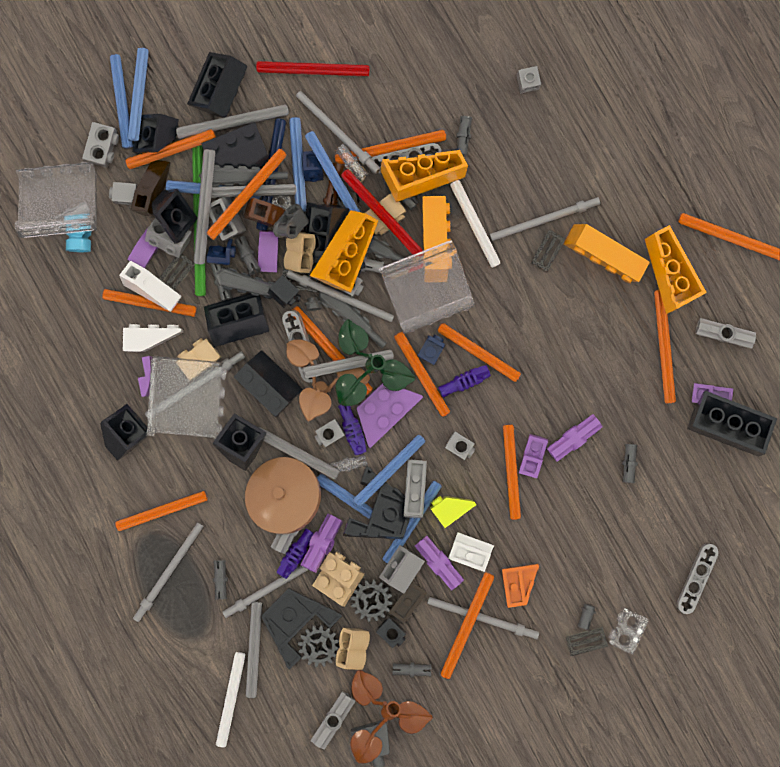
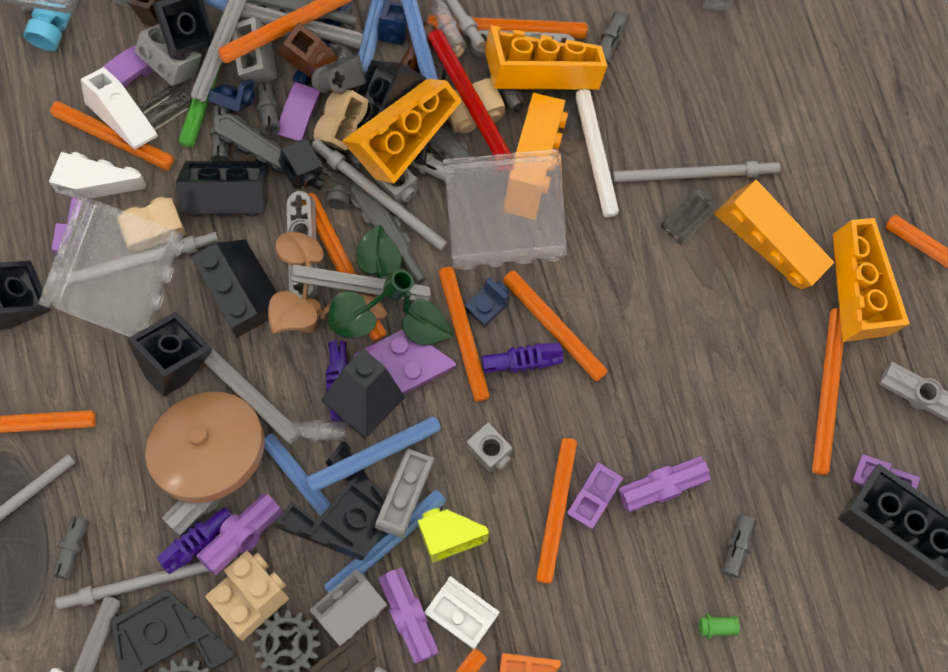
camera: 15 degrees right, 15 degrees down
(338, 433) = (309, 366): light grey brick -> none
(372, 436) = (363, 394): none -> black slope
(628, 516) = (718, 626): none -> bright green pin

